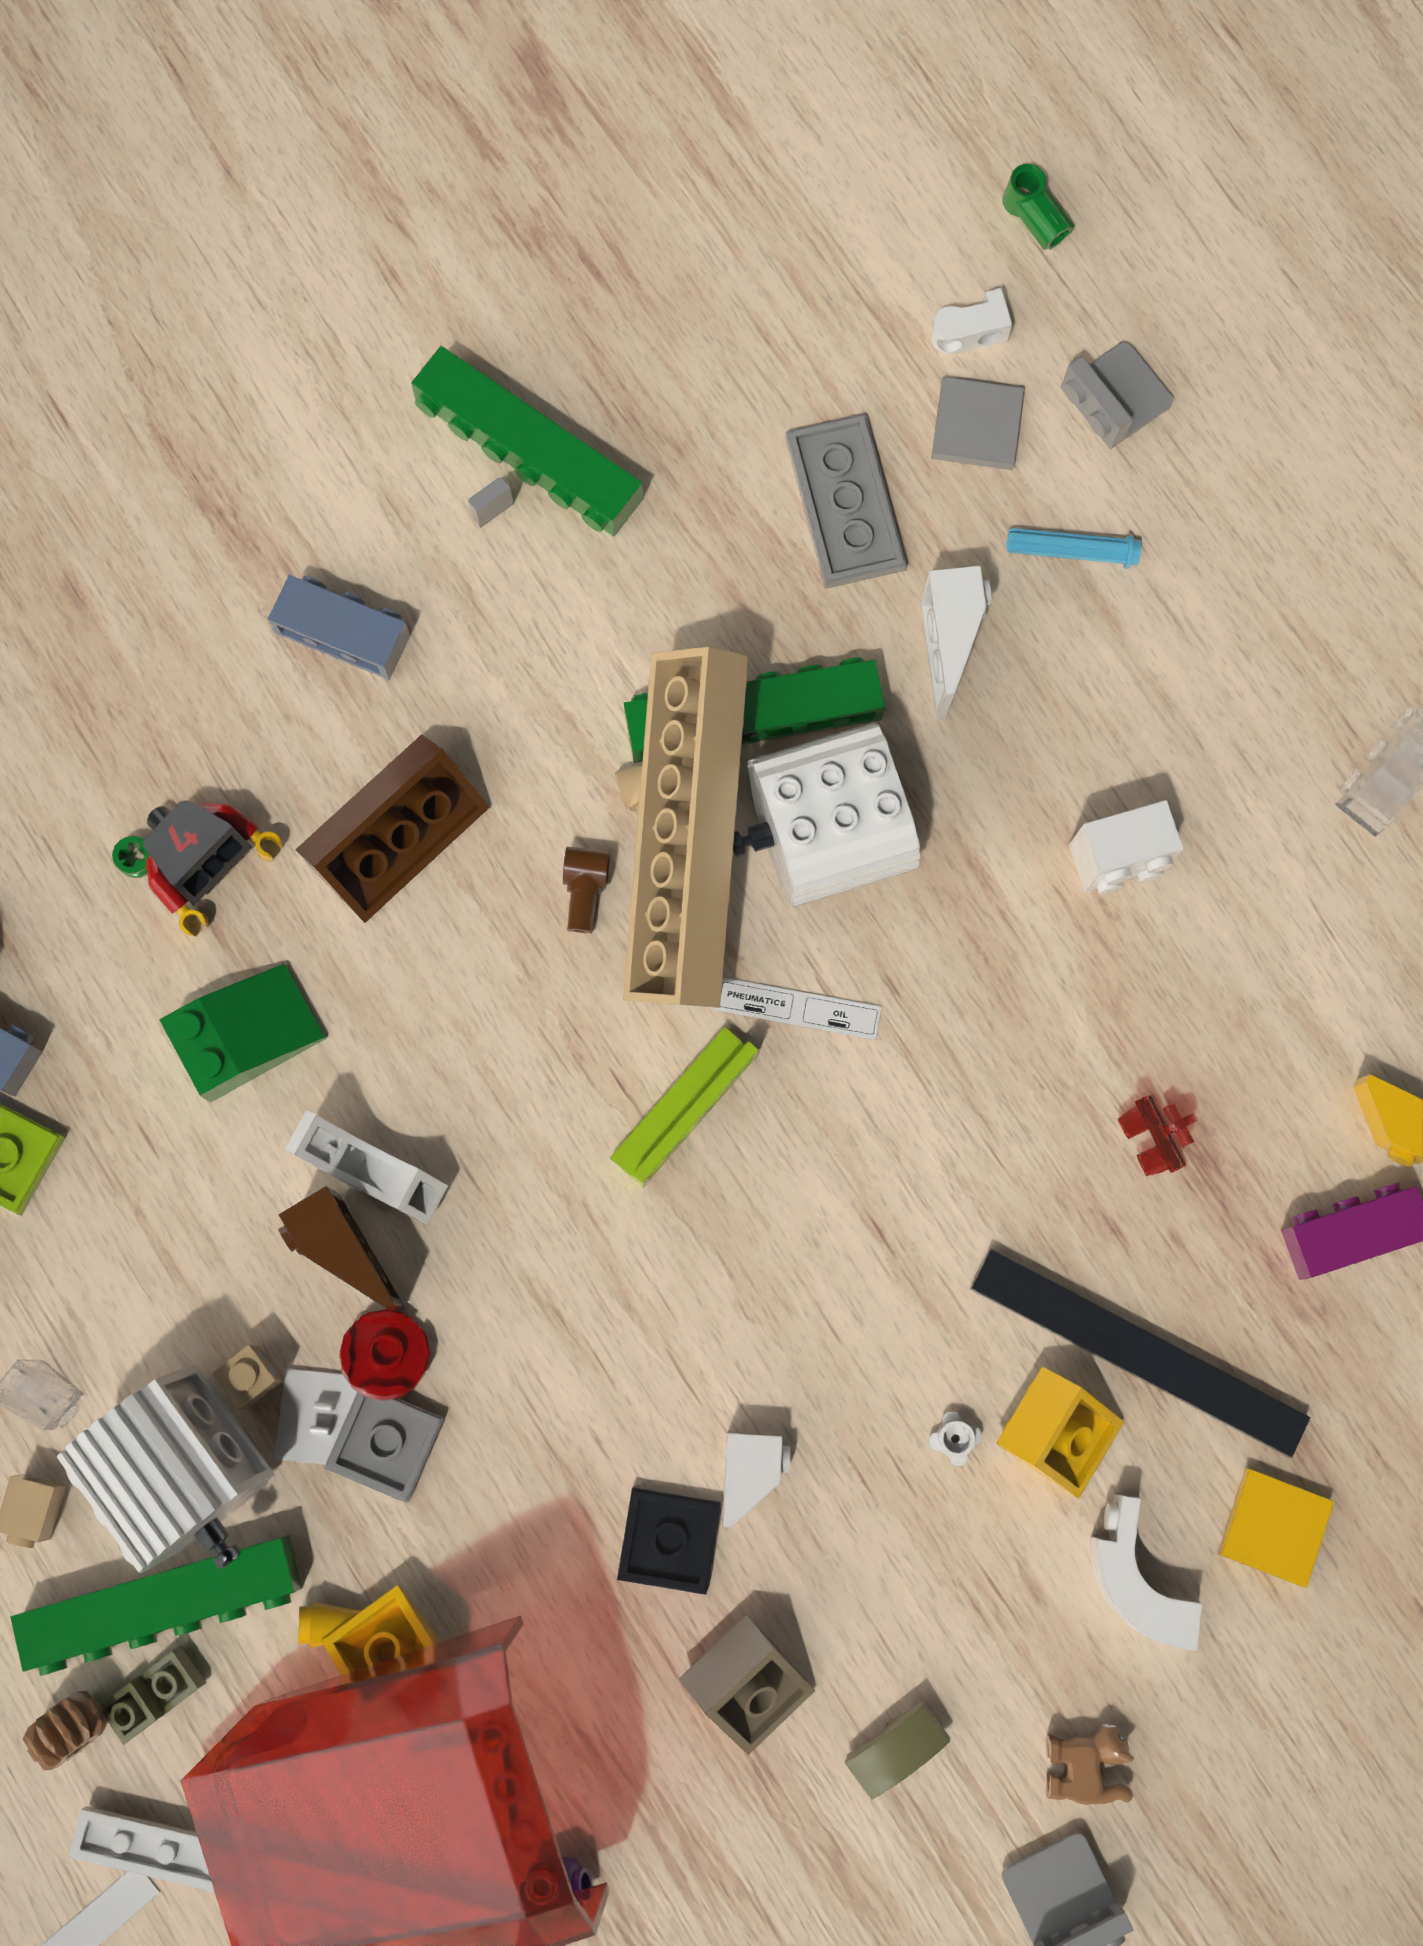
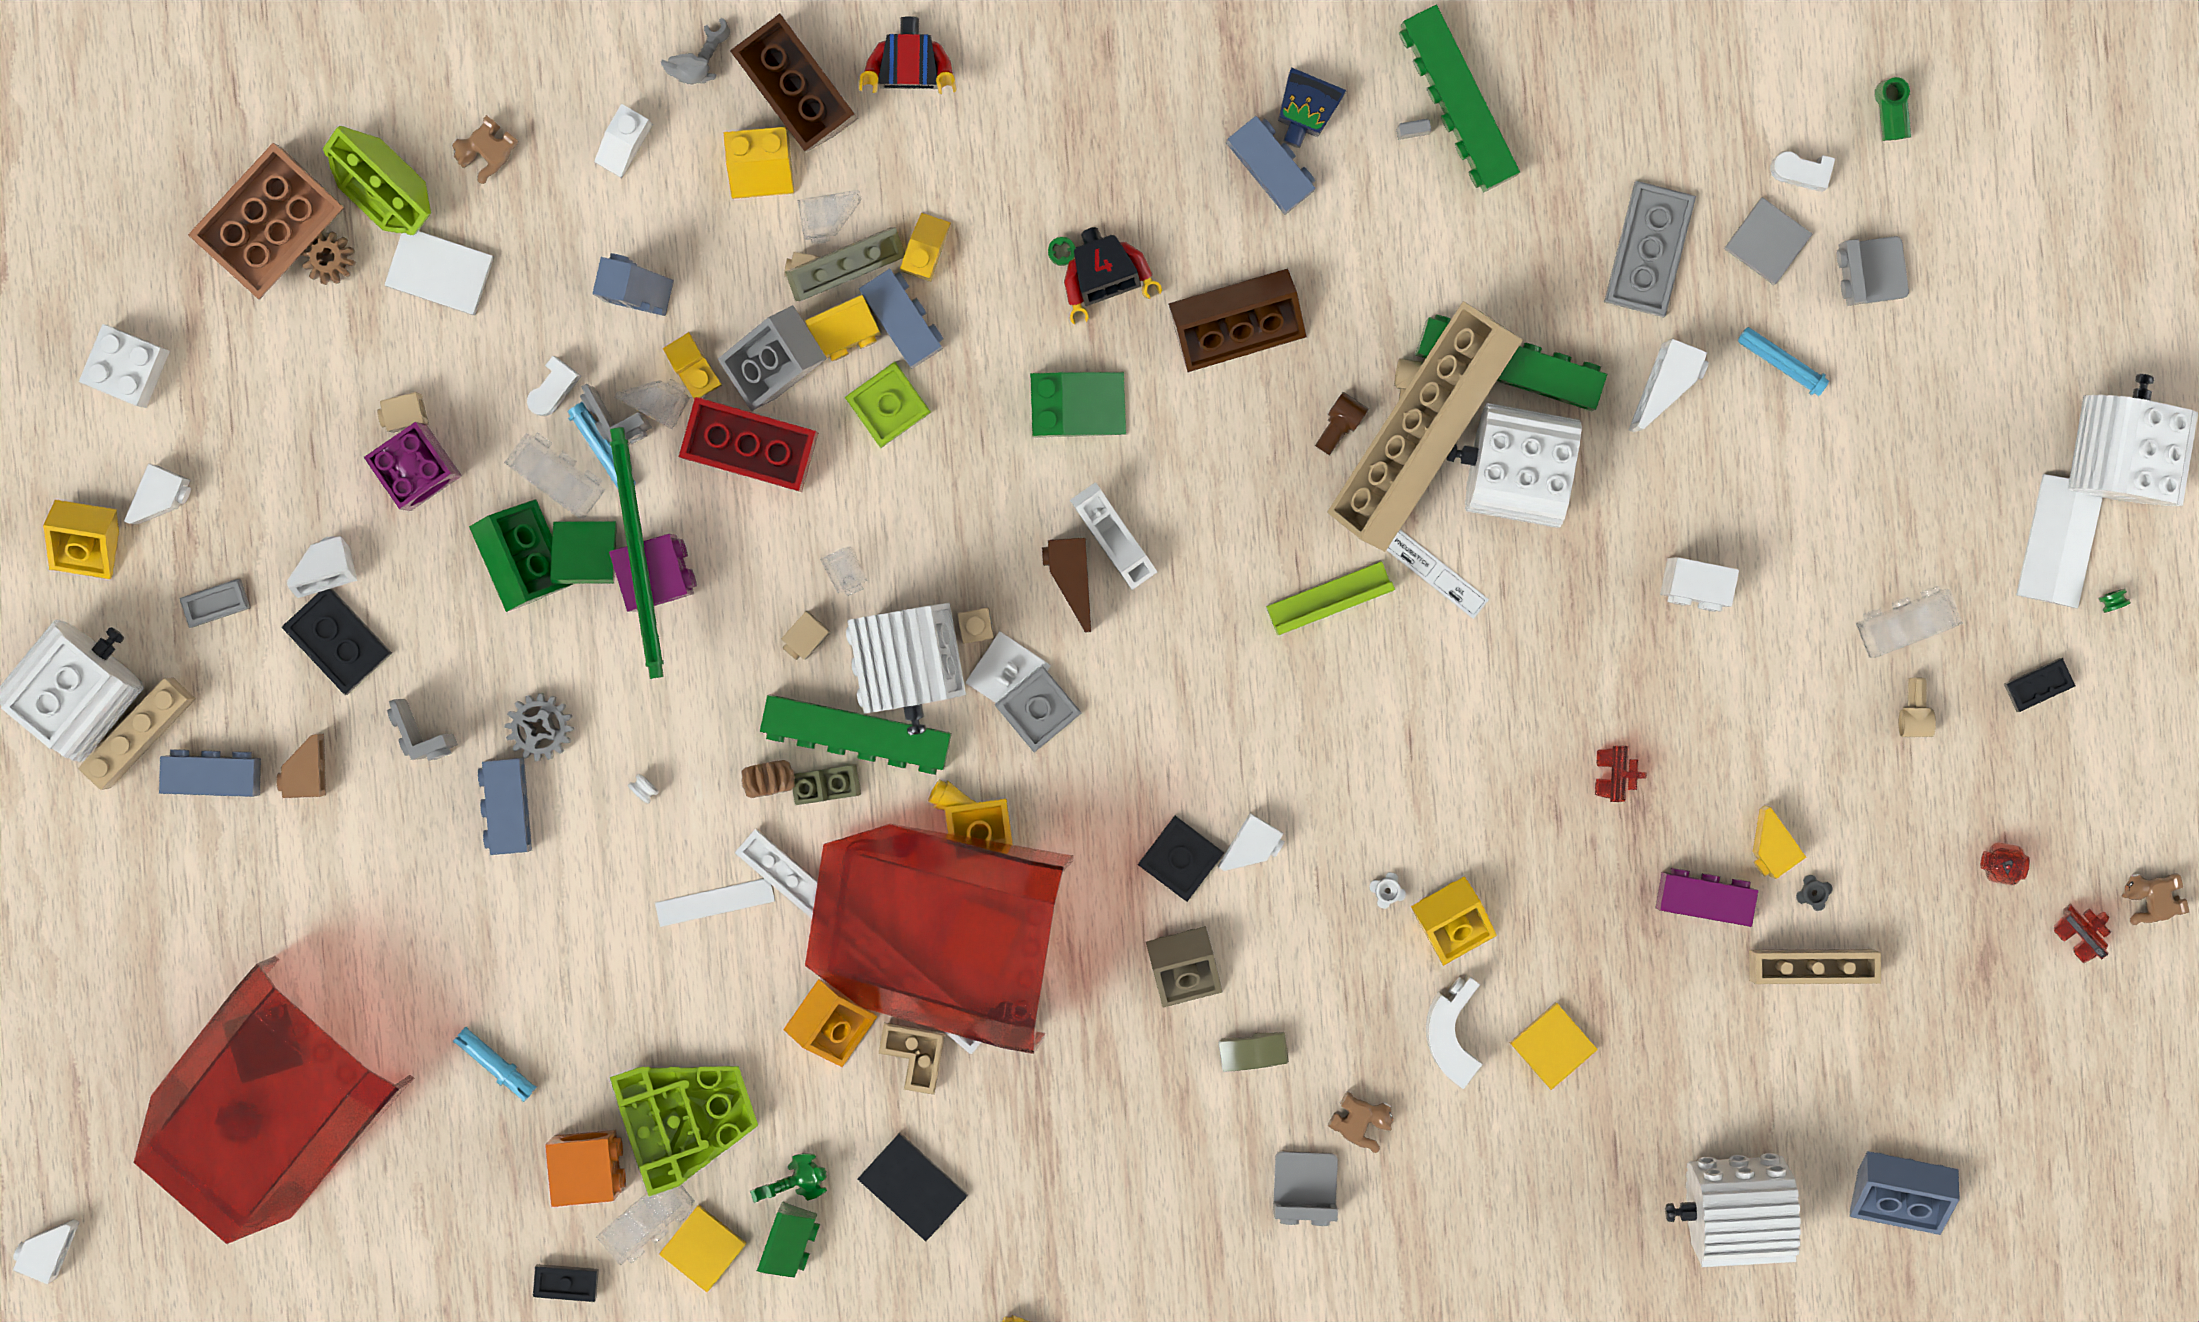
camera: 30 degrees right, 10 degrees up
(349, 536) = (1307, 106): none -> dark blue torso
(384, 1355) = (1065, 655): red tile -> none
(1140, 1353) = (1529, 899): black tile -> none

